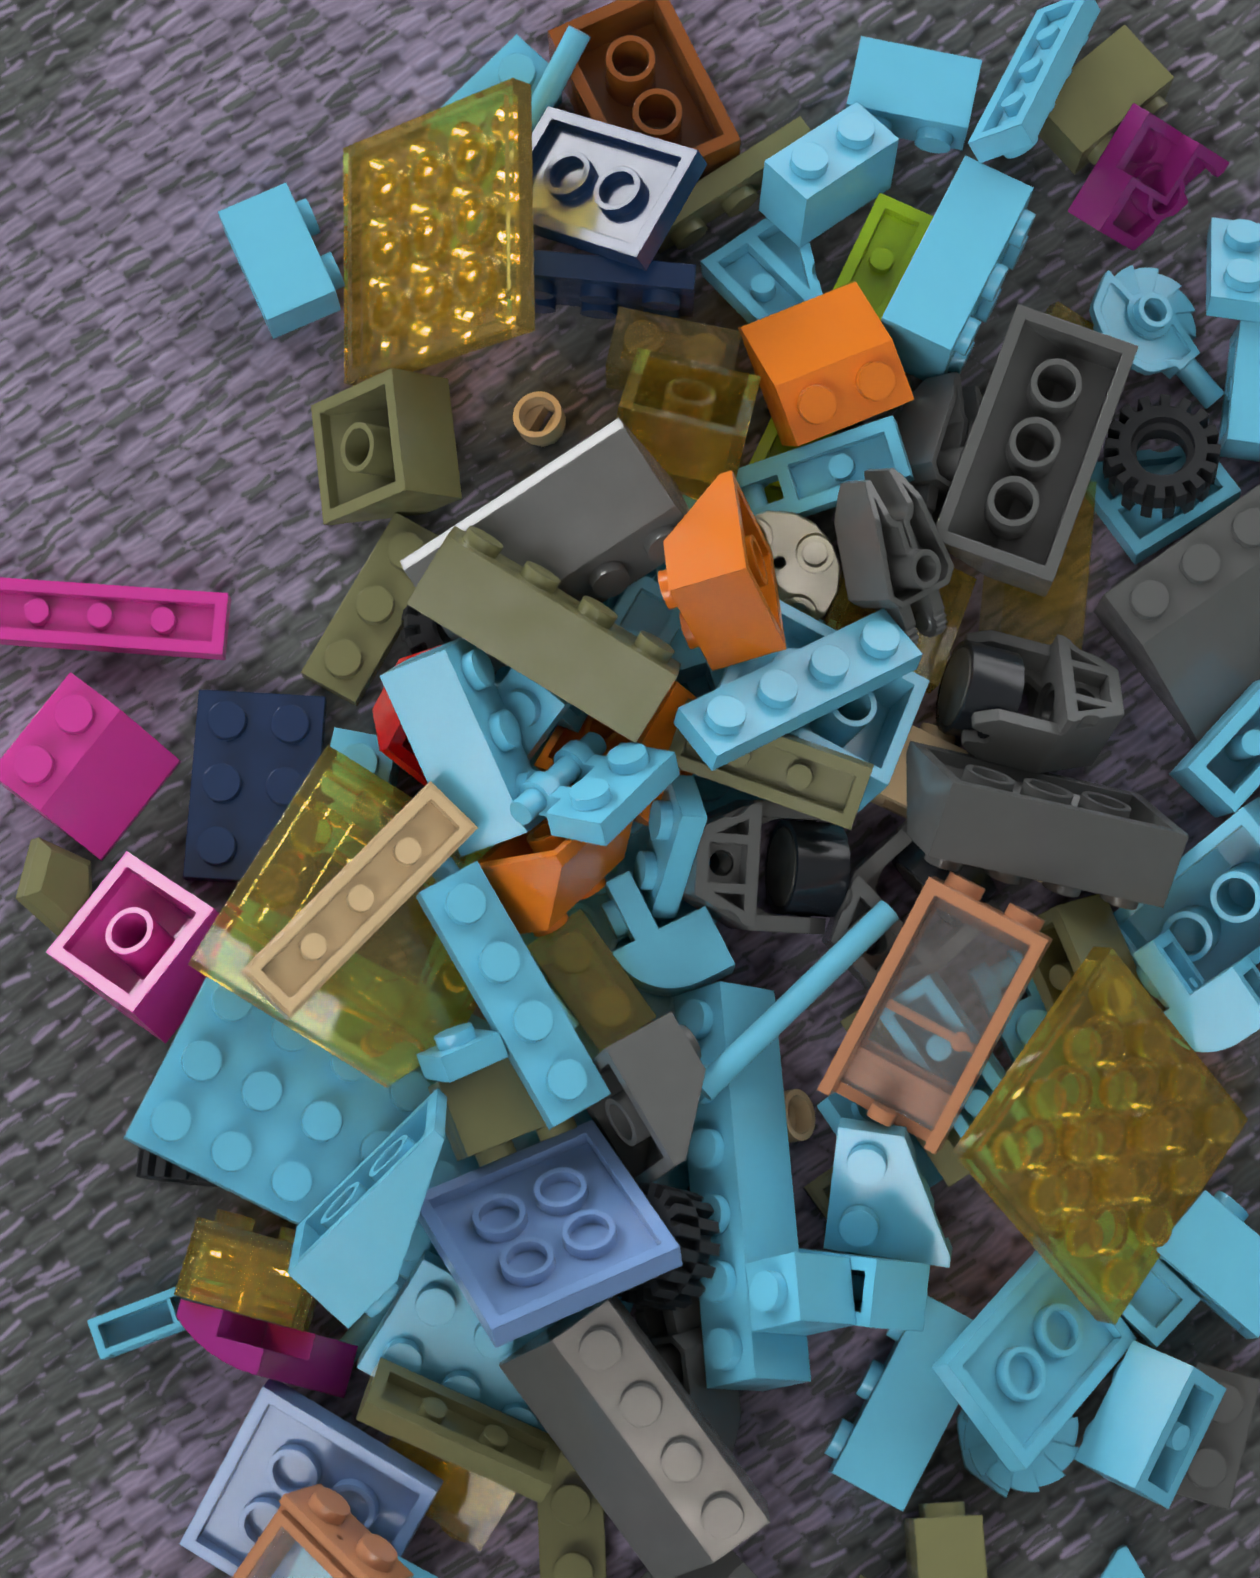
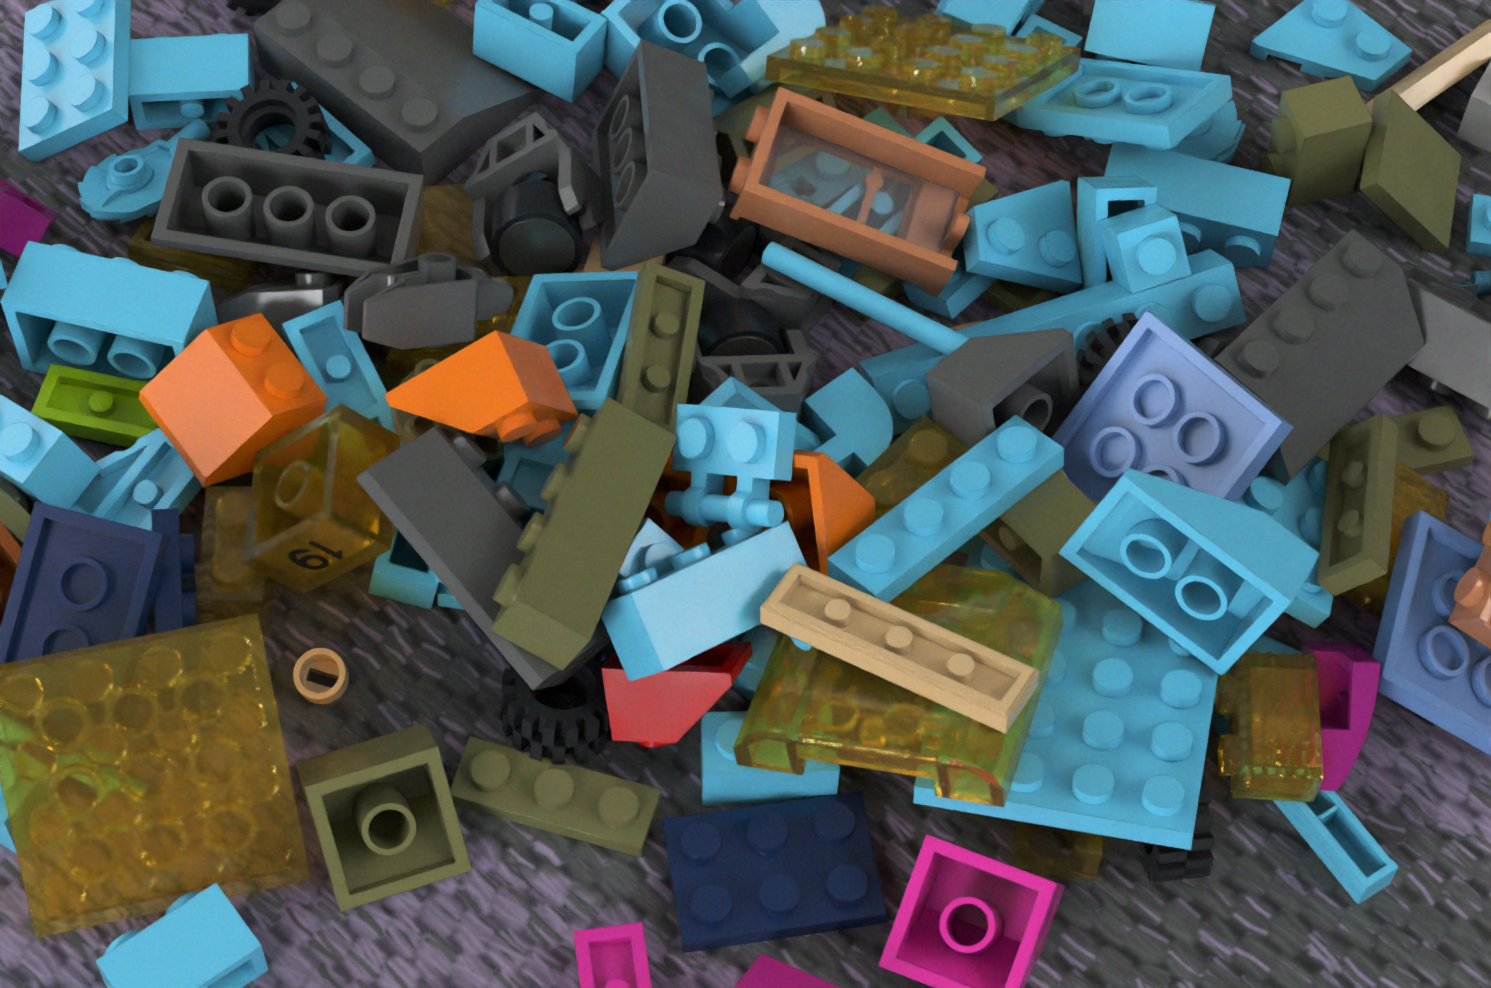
camera: 105 degrees left, 20 degrees down
(461, 1052) = (1018, 545): medium azure plate -> none
(797, 689) = (584, 338): medium azure plate -> none

